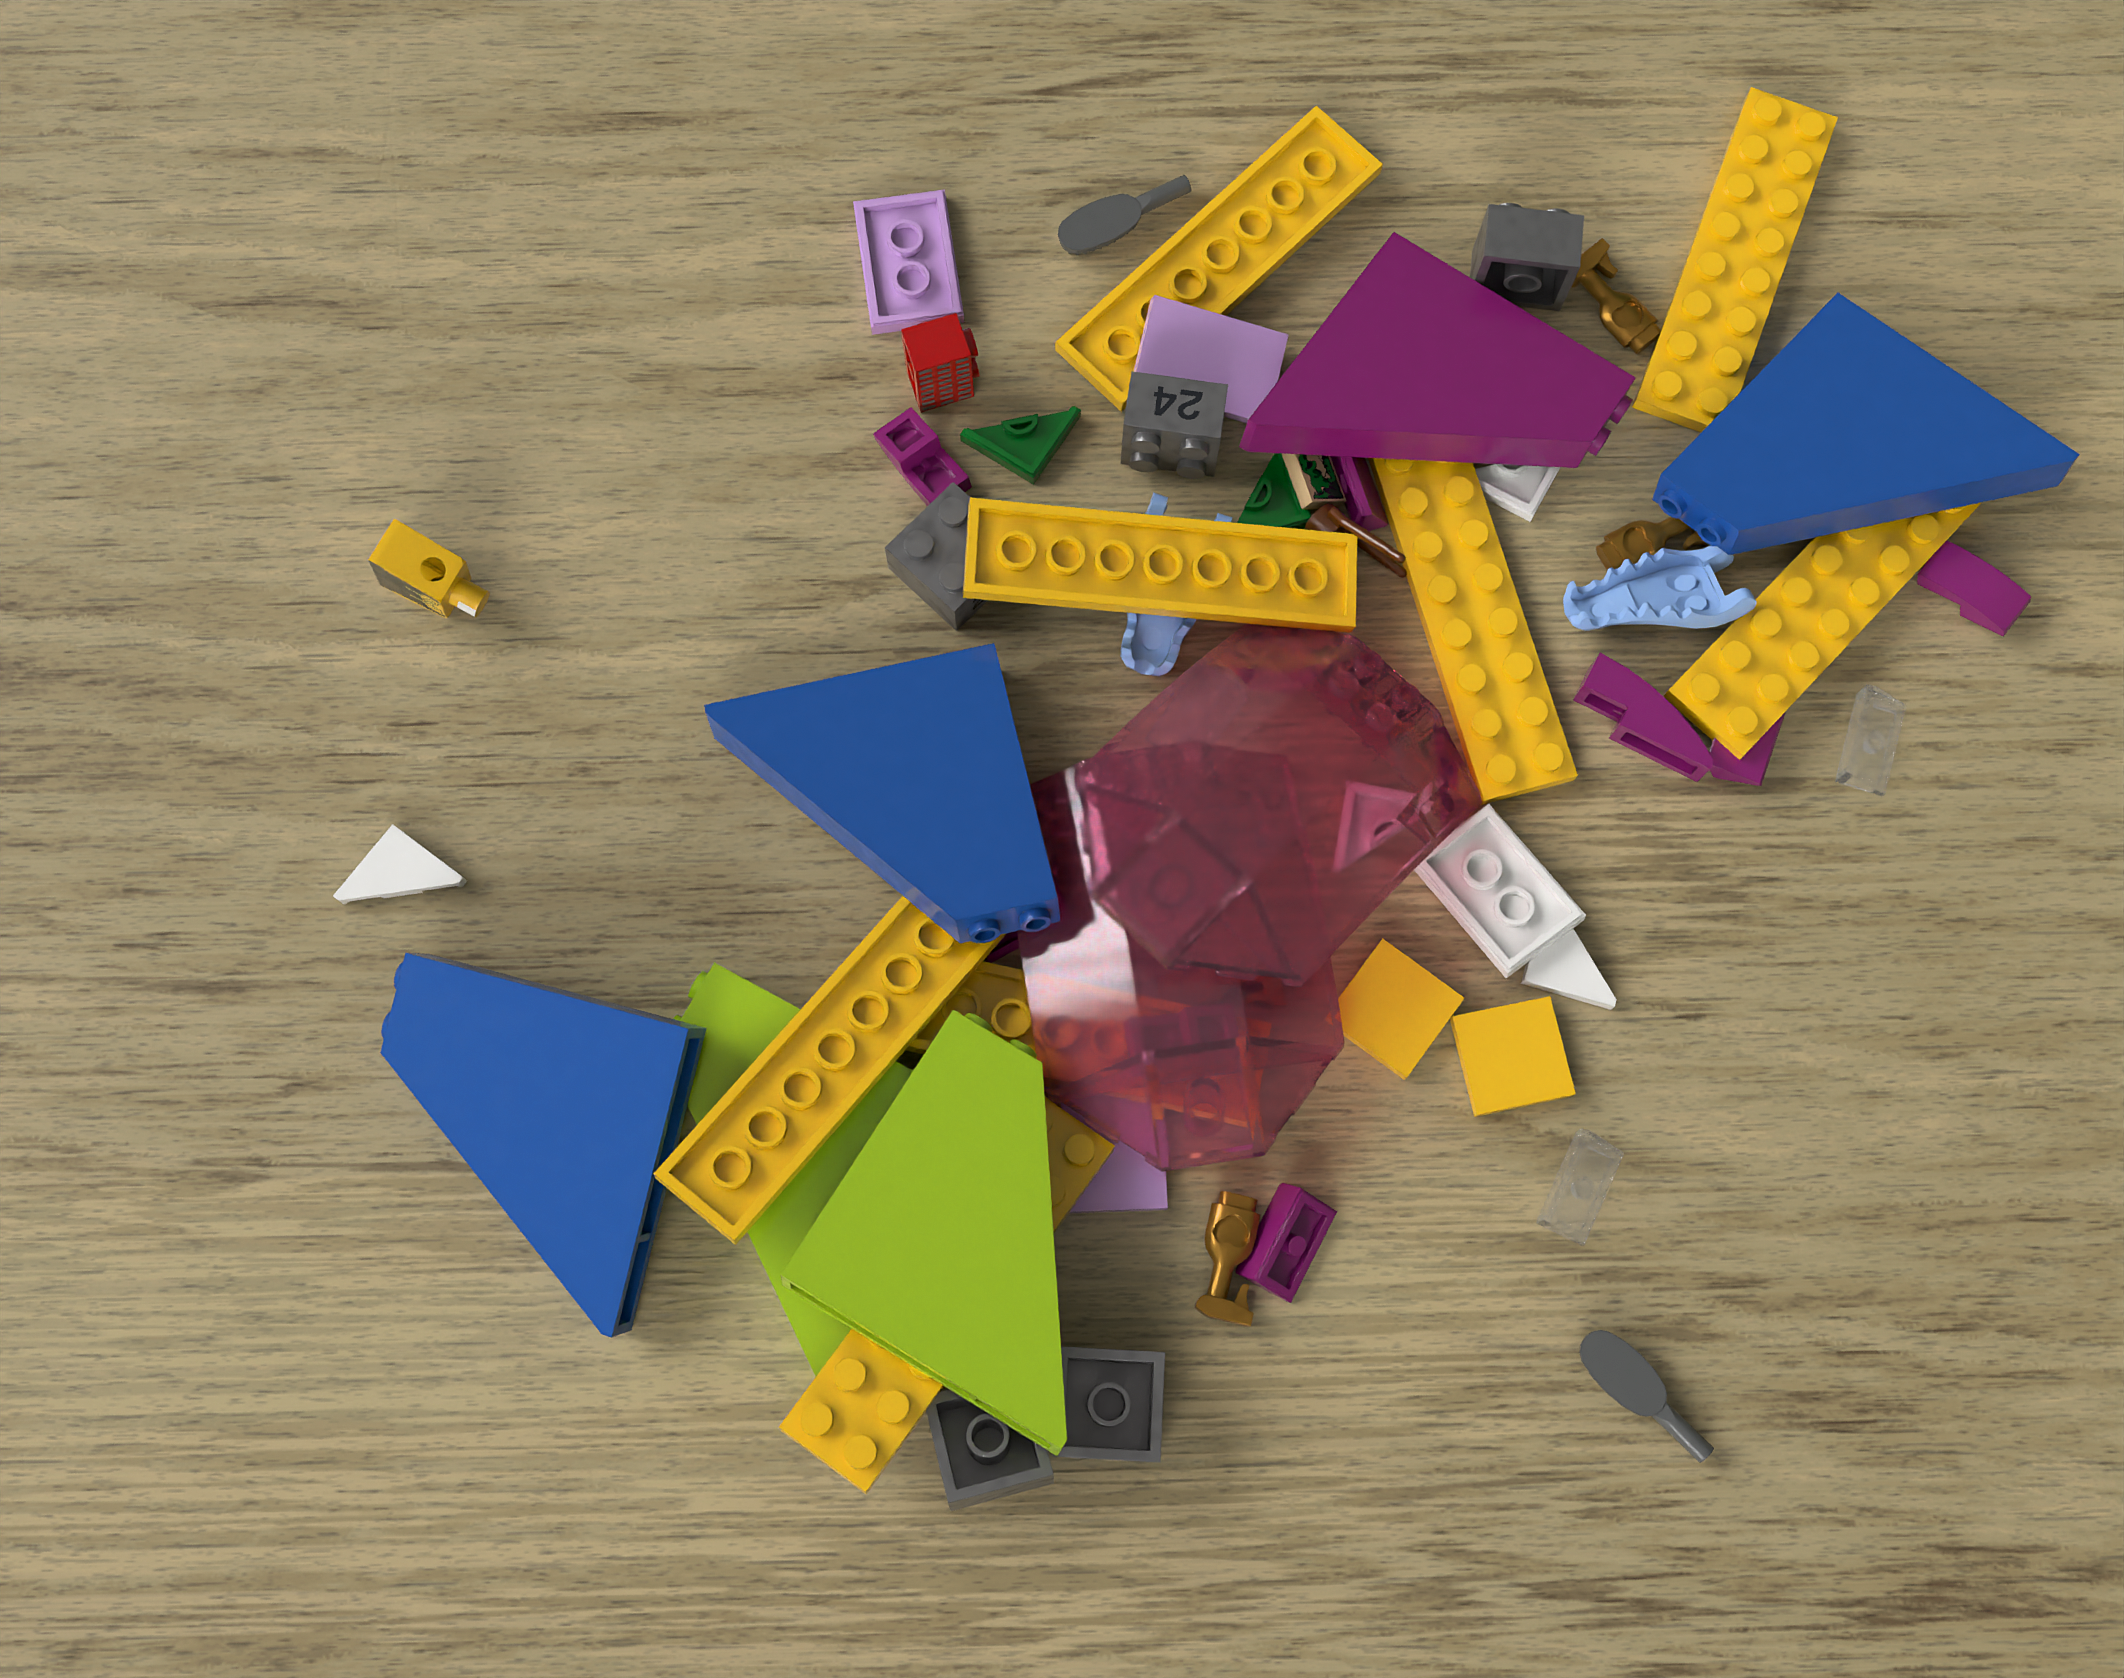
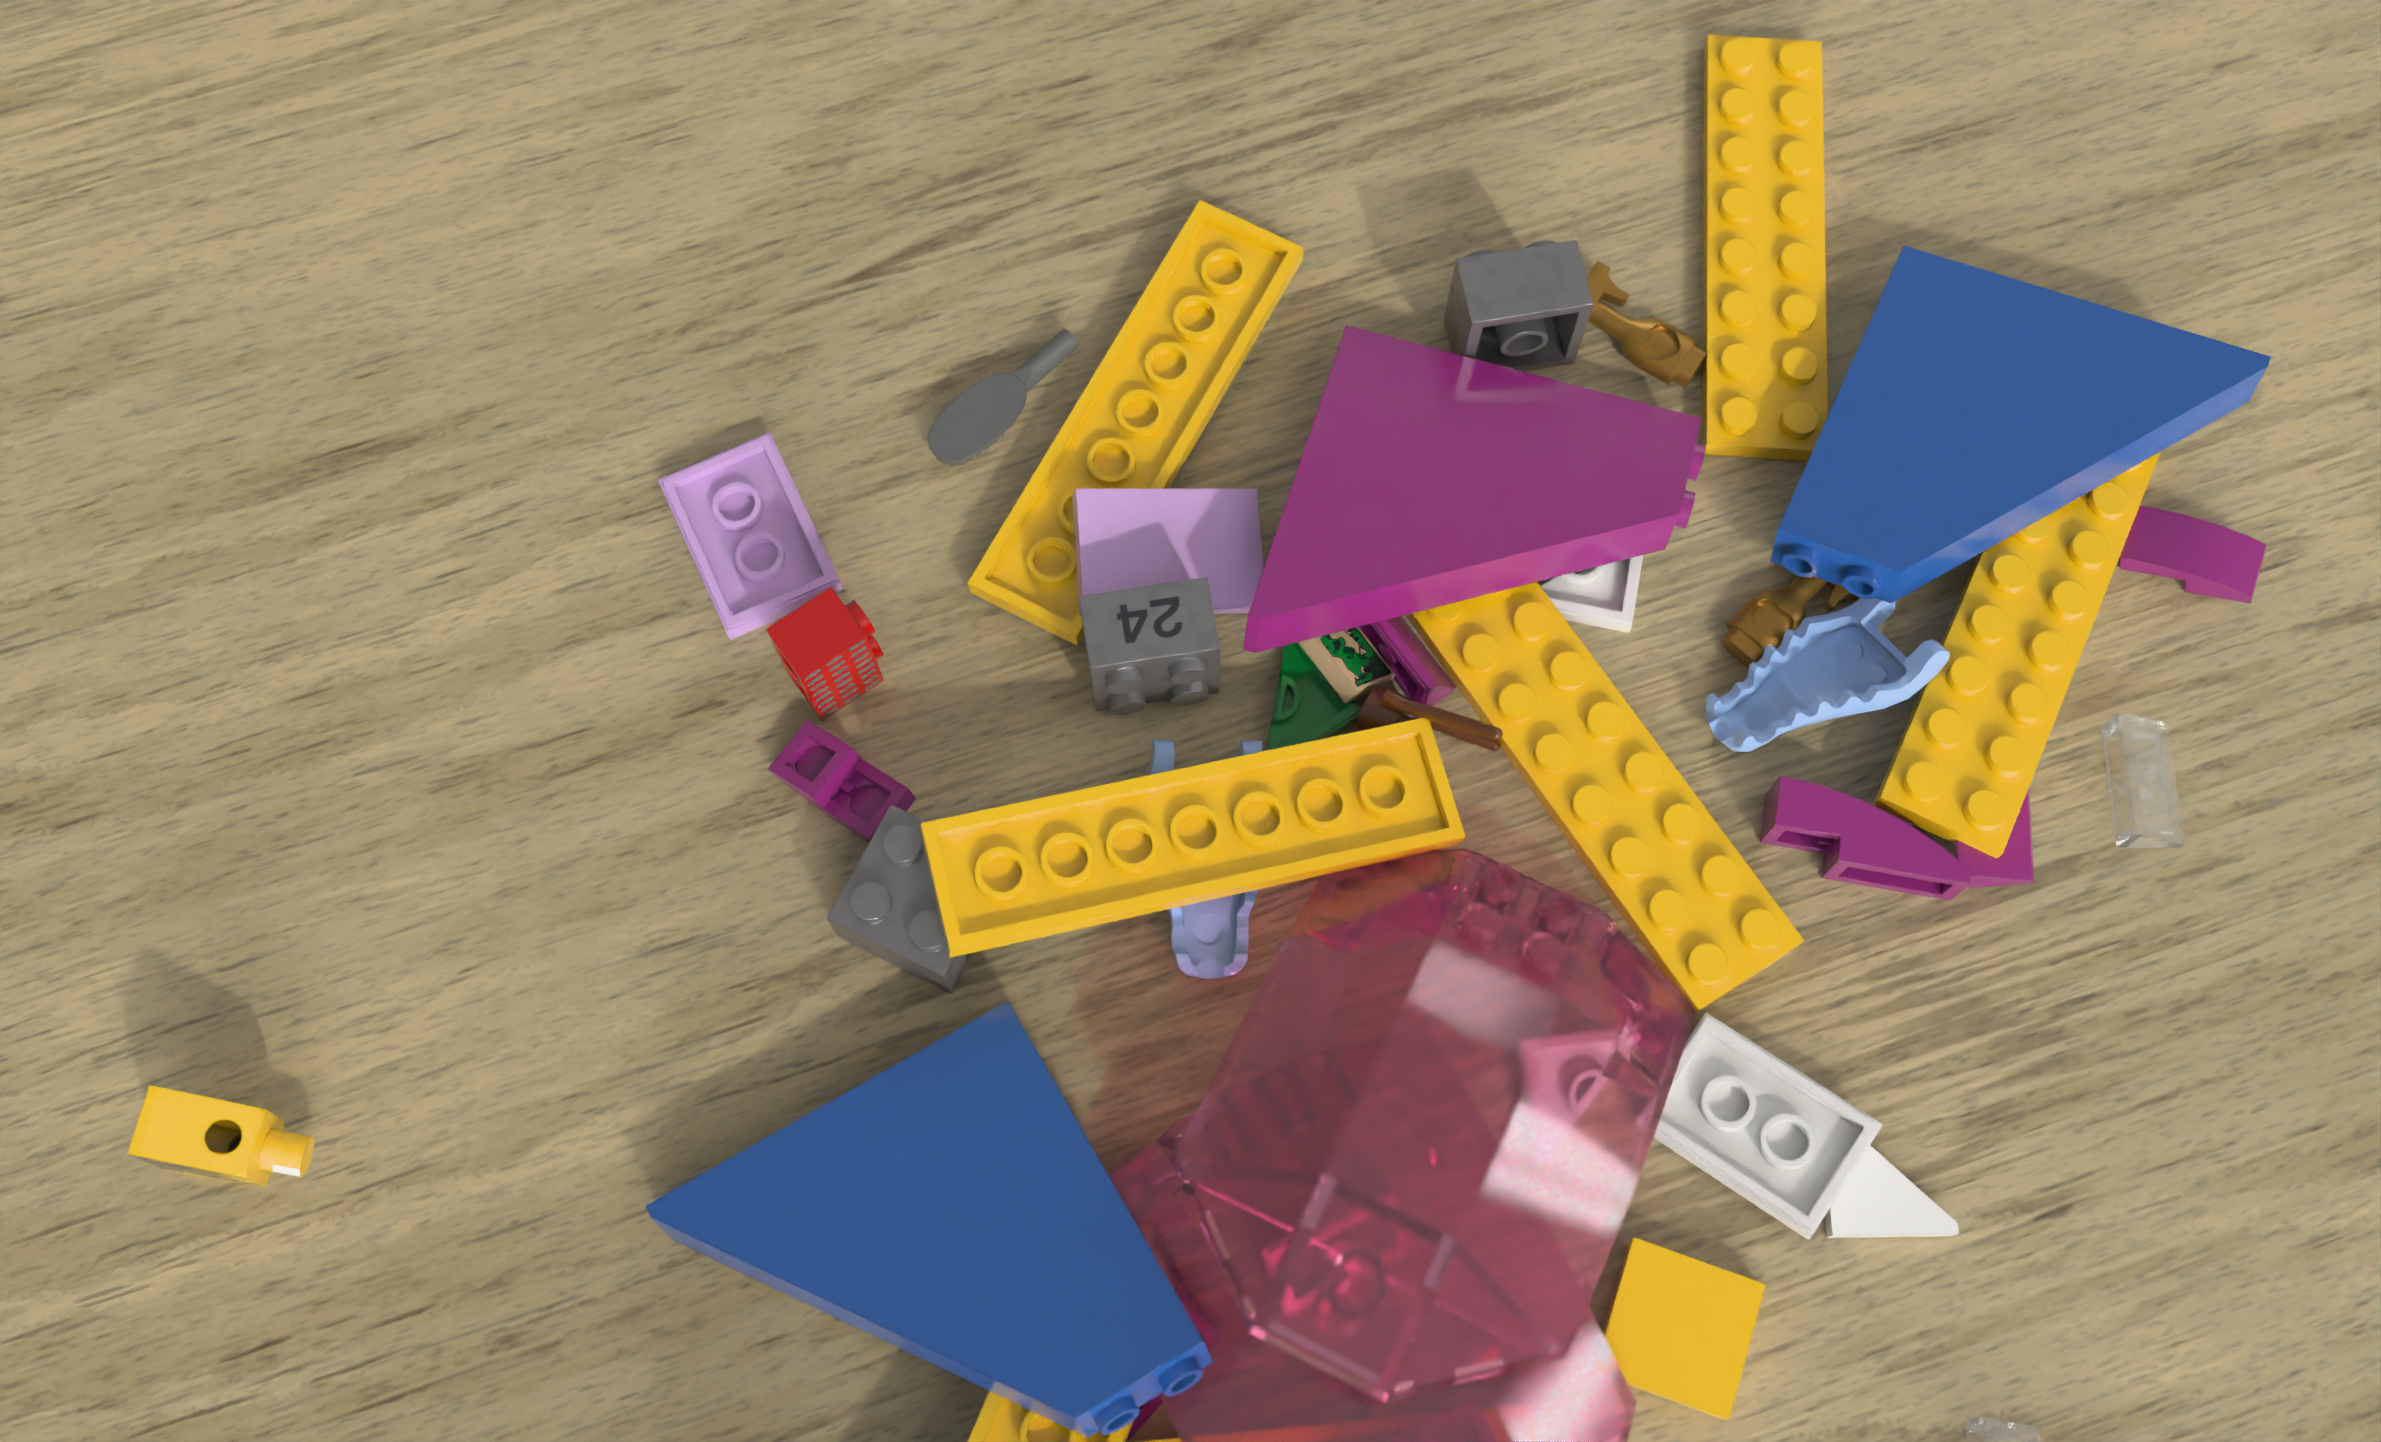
camera: 15 degrees left, 5 degrees down
(1023, 443) = (966, 722): green tile -> none
(1512, 1056) = (1852, 1344): yellow tile -> none

